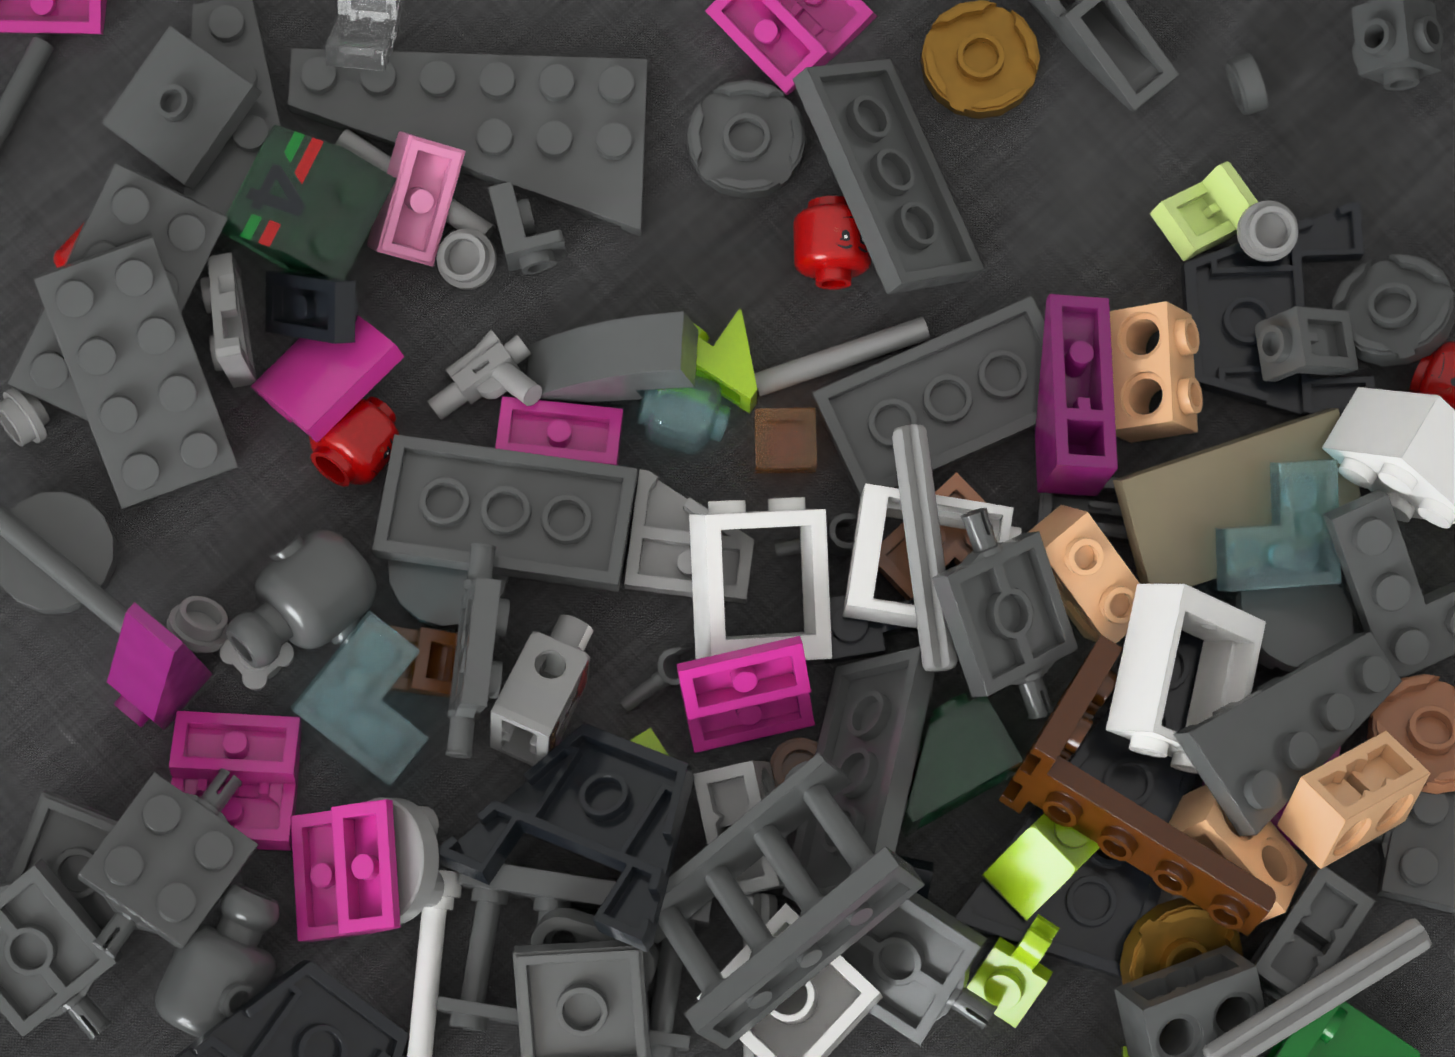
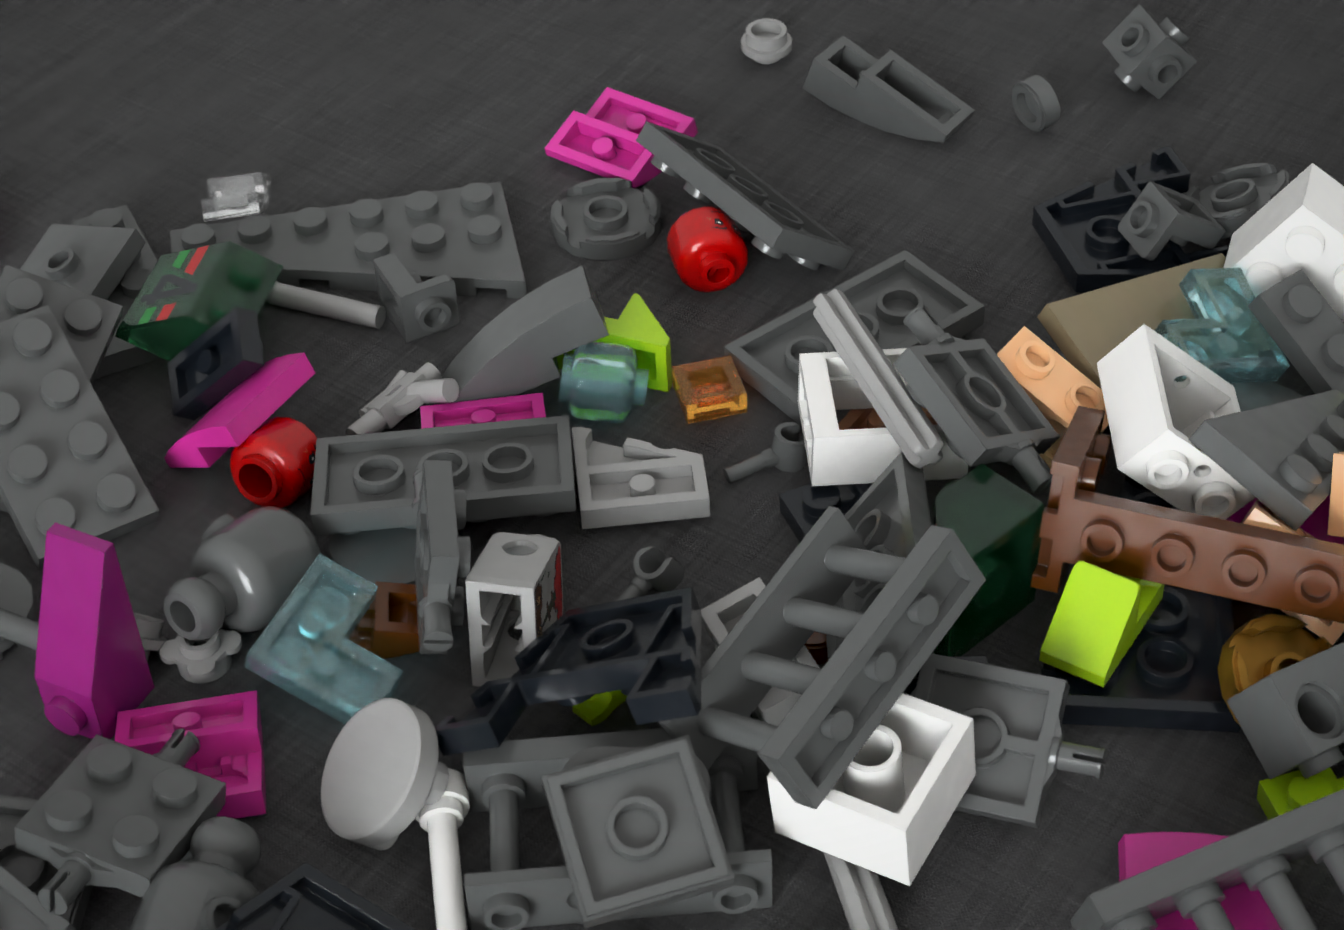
camera: 10 degrees left, 35 degrees down
(231, 339) = (132, 389): light grey wing -> none
(345, 871) = (335, 789): dark pink slope -> none
(419, 199) = (306, 295): bright pink slope -> none
(466, 258) = (362, 328): light grey plate -> none
(708, 574) = (726, 522): white window -> none
(746, 694) = (728, 533): dark pink slope -> none
(841, 356) = (713, 344): light grey bar -> none
(980, 59) = (797, 140): pearl gold tile -> none
(1013, 974) = (1115, 729): lime plate -> none
(1075, 398) = (976, 280): magenta slope -> none
(1166, 367) = (1033, 263): light nougat brick -> none
(1205, 212) = (1048, 172): yellowish green bracket -> none
(1267, 231) = (1099, 161): light grey plate -> none

